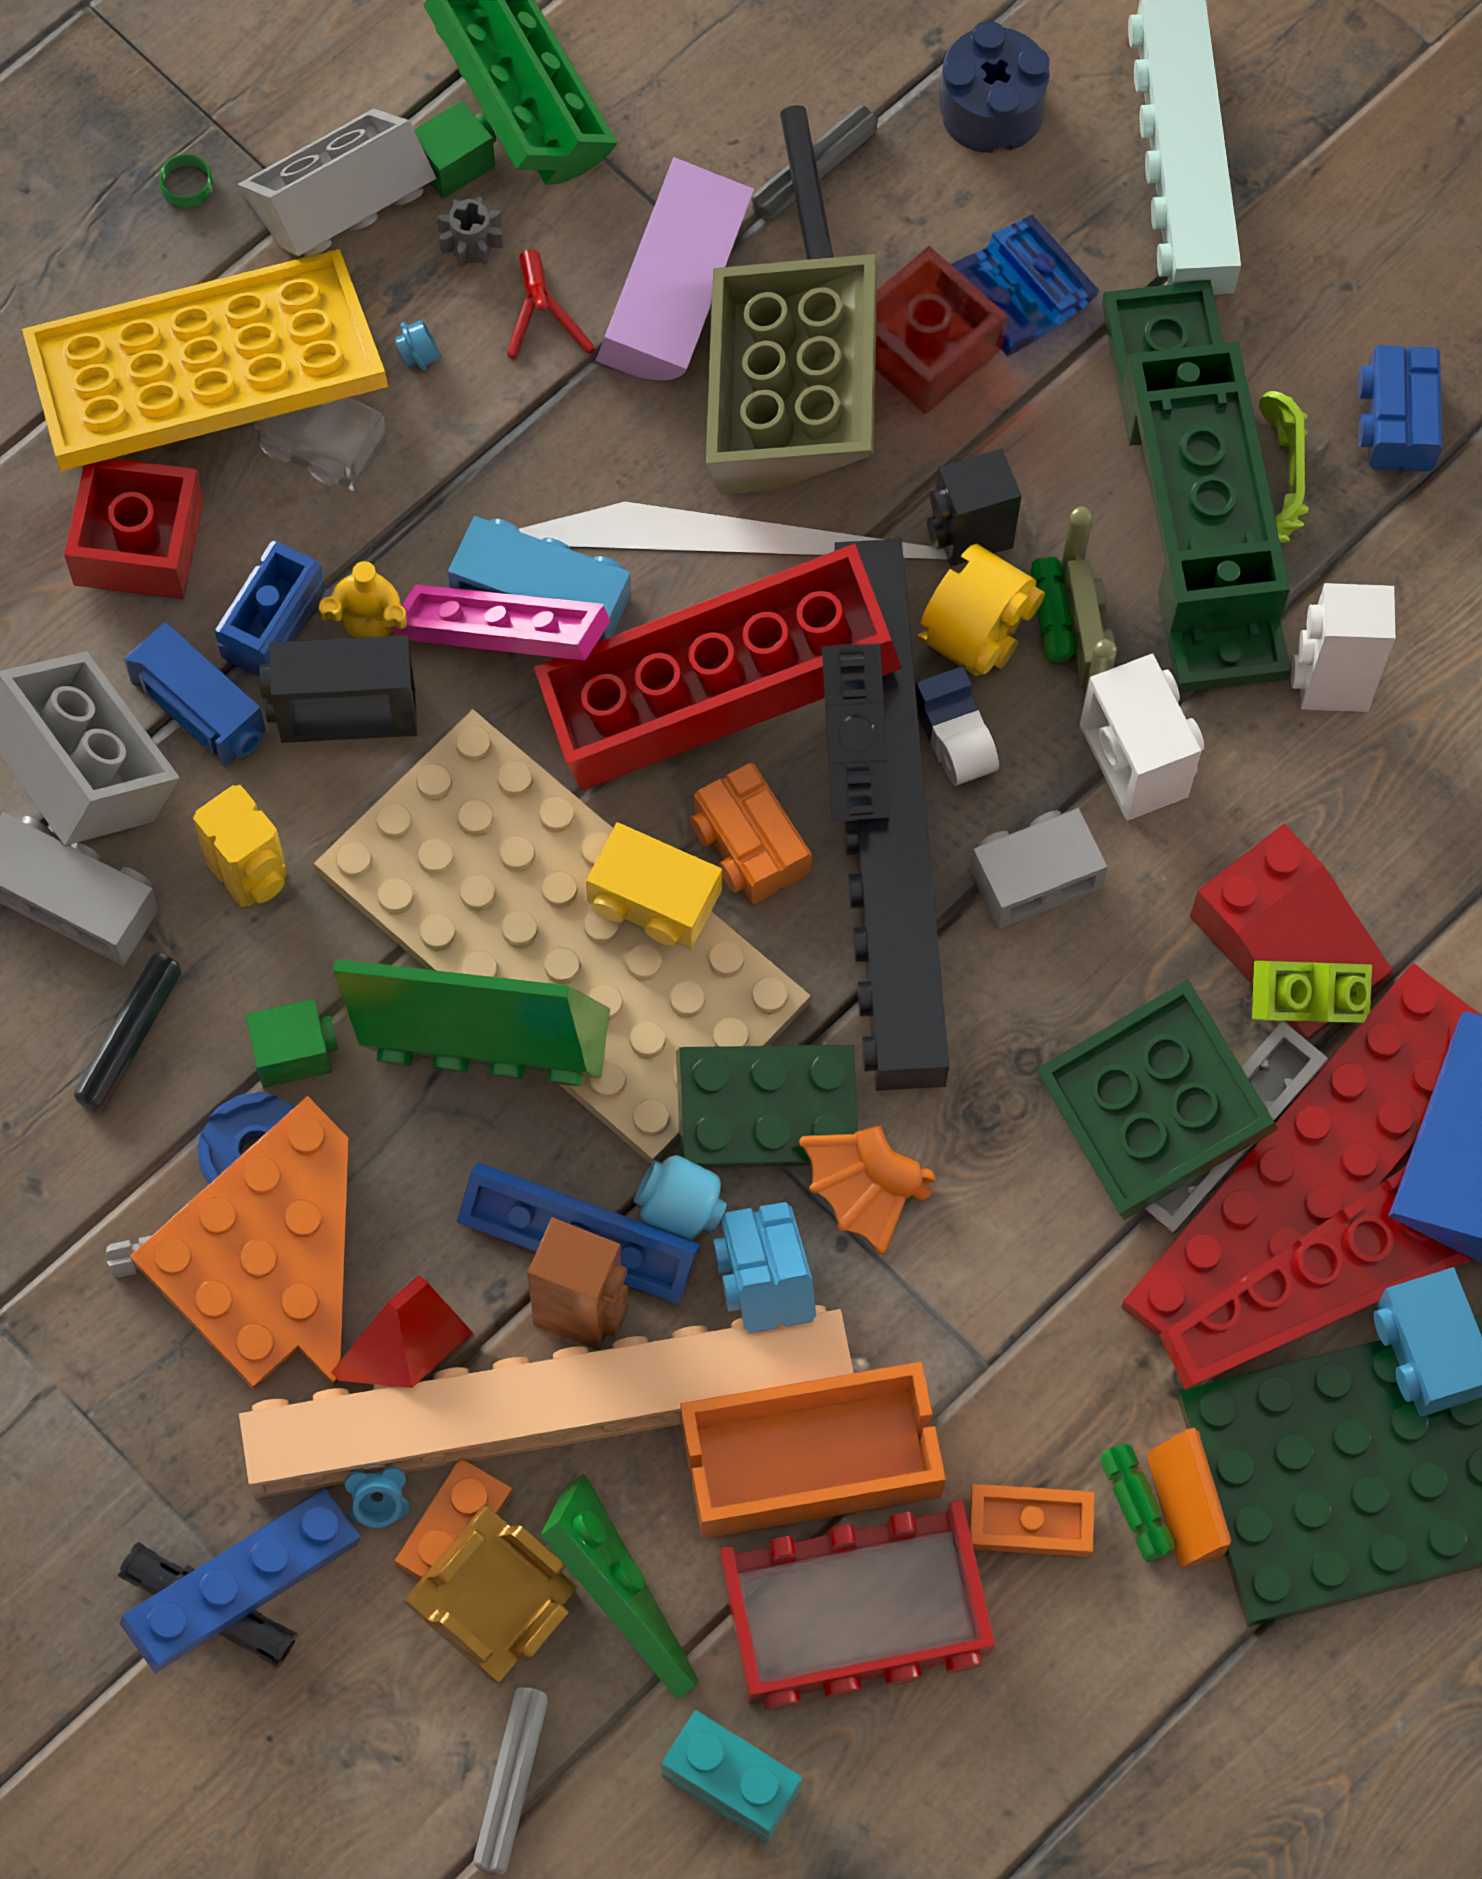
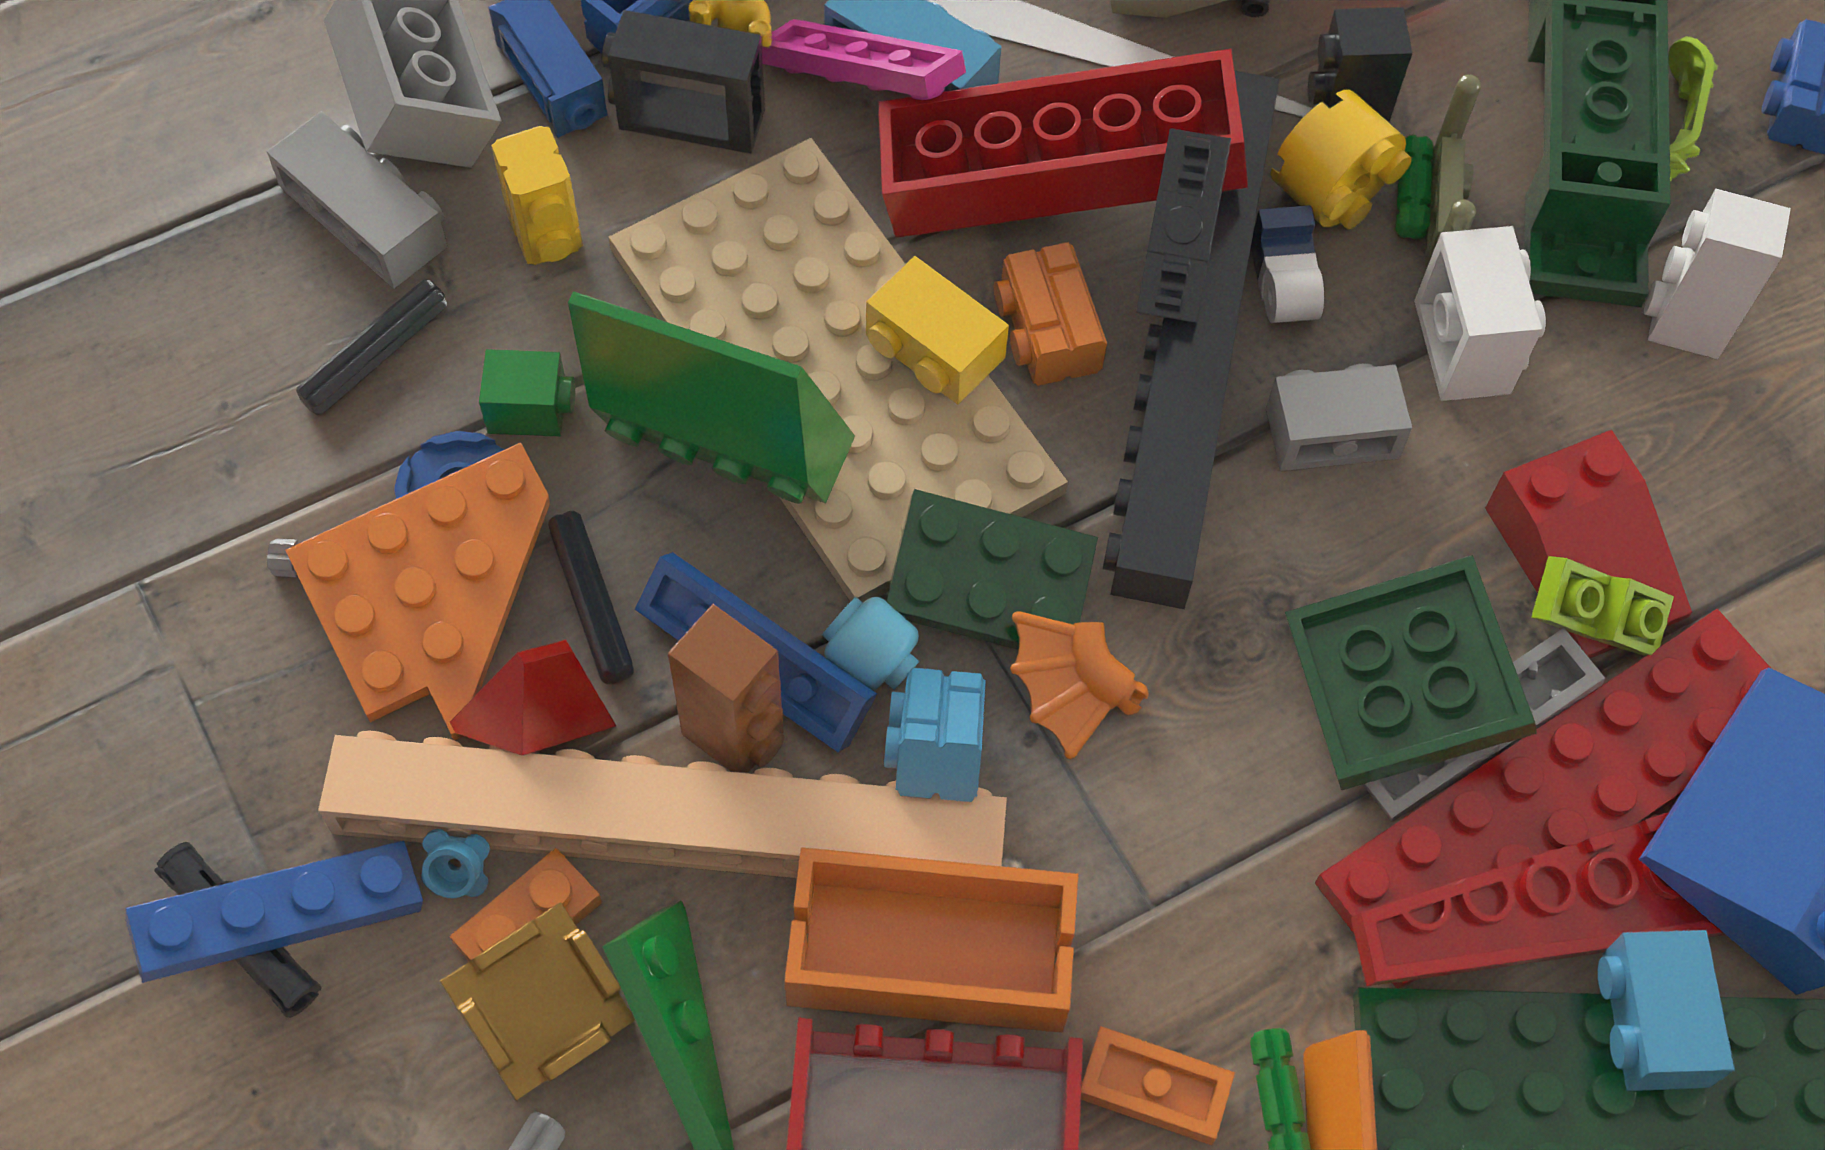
camera: 15 degrees right, 5 degrees down
(413, 1220) = (591, 597): none -> black axle

